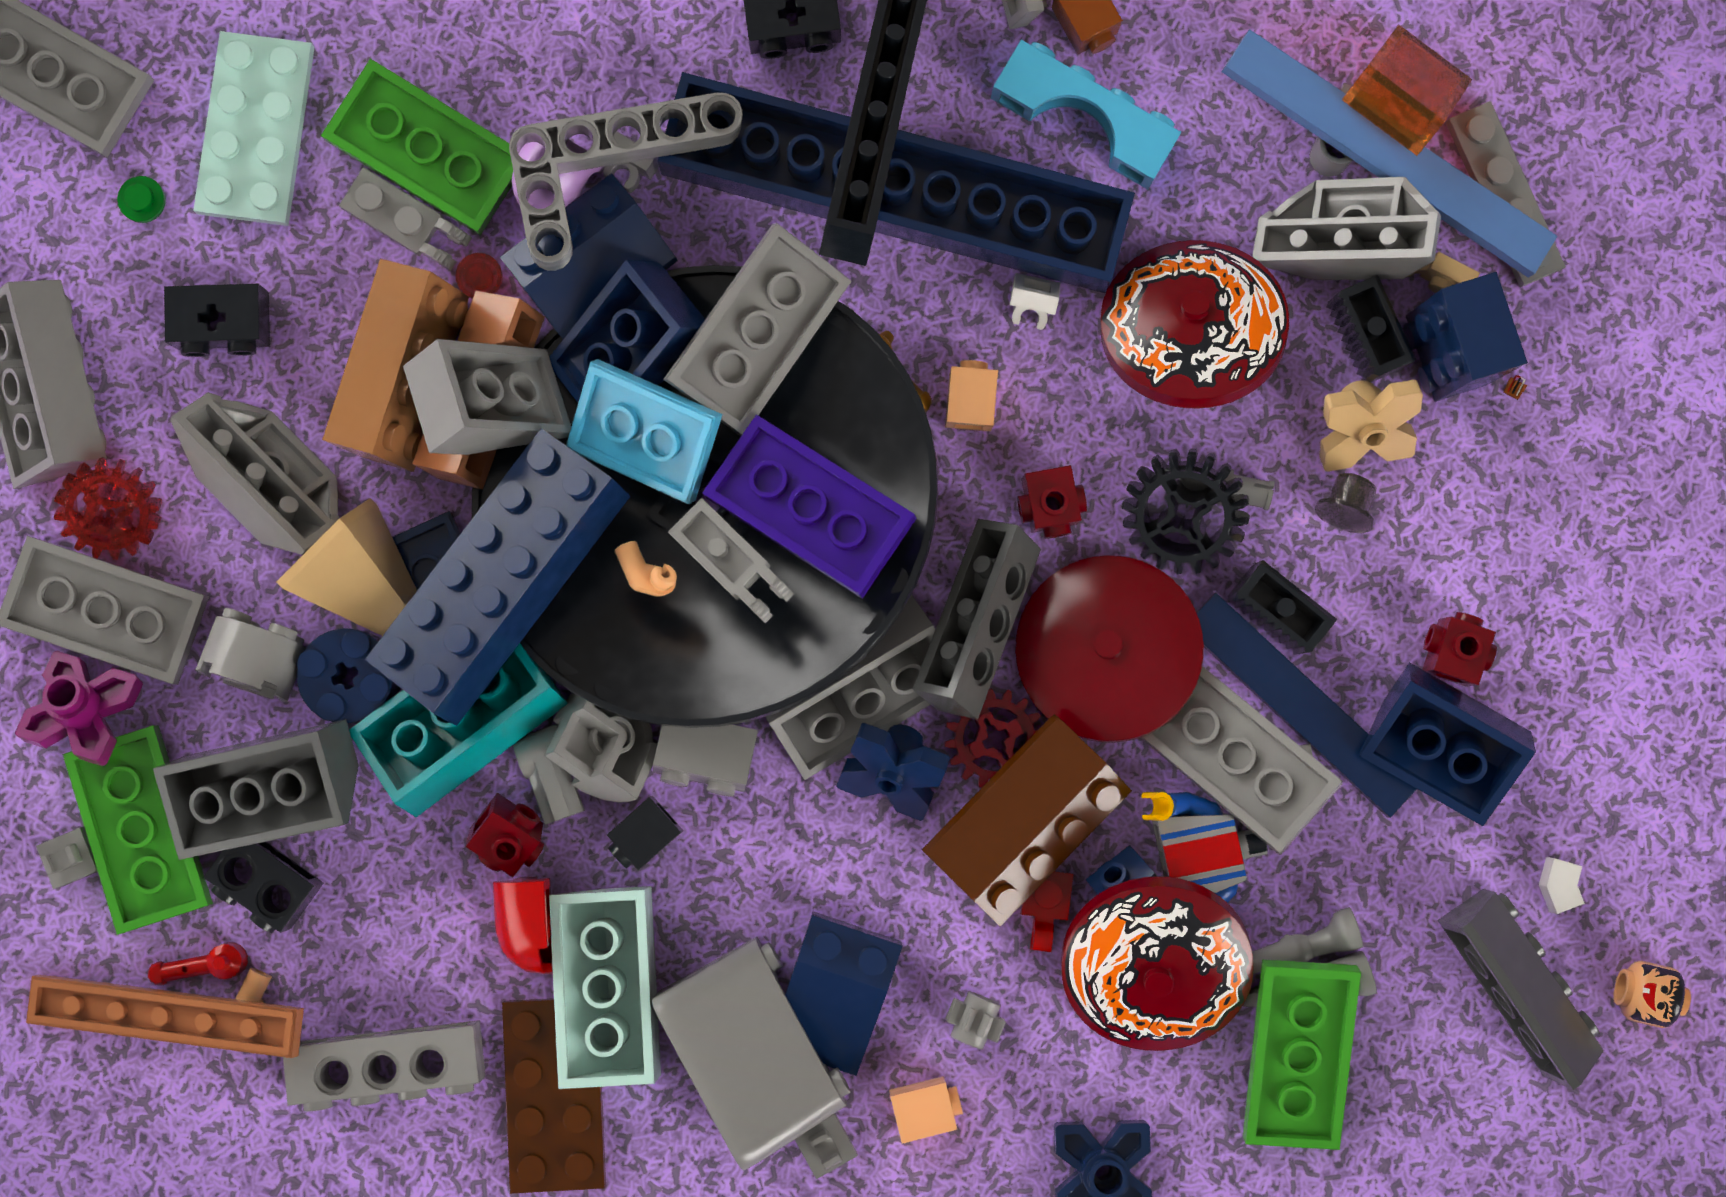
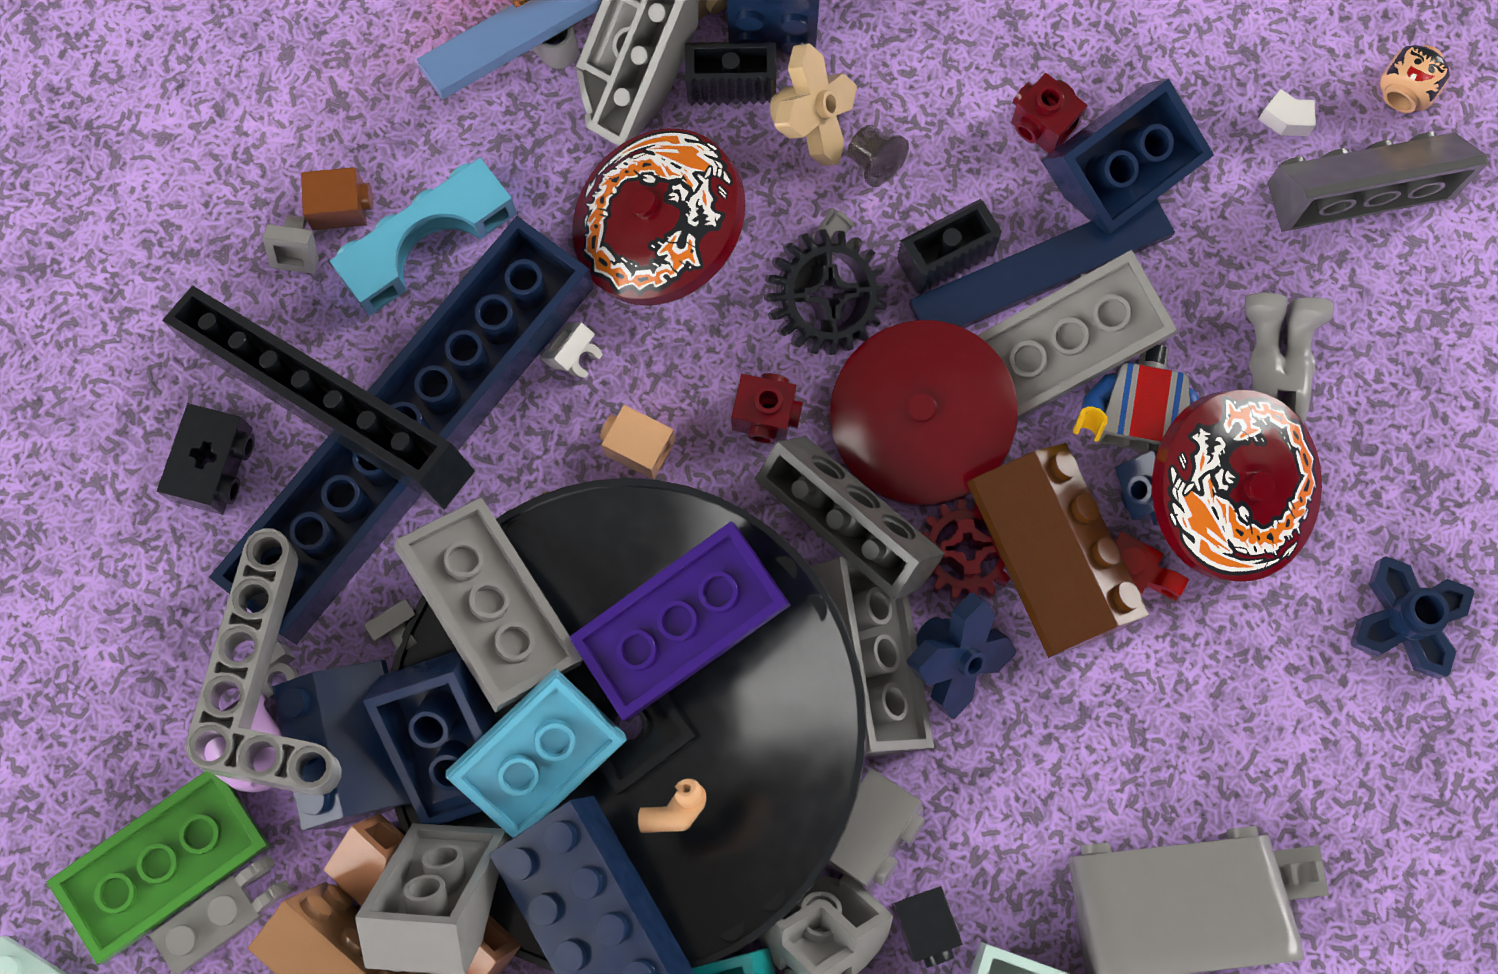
camera: 55 degrees left, 10 degrees down
(478, 273) = (306, 862): clear red plate -> none
(713, 252) = (392, 623): none -> light grey tile
(726, 556) = (695, 721): light grey hinge -> none
(841, 987) = (1149, 791): dark blue slope -> none
(925, 1109) = (1297, 760): light nougat brick -> none
(975, 1020) = (1228, 677): light grey gear -> none
(1301, 1054) = (1367, 391): bright green plate -> none

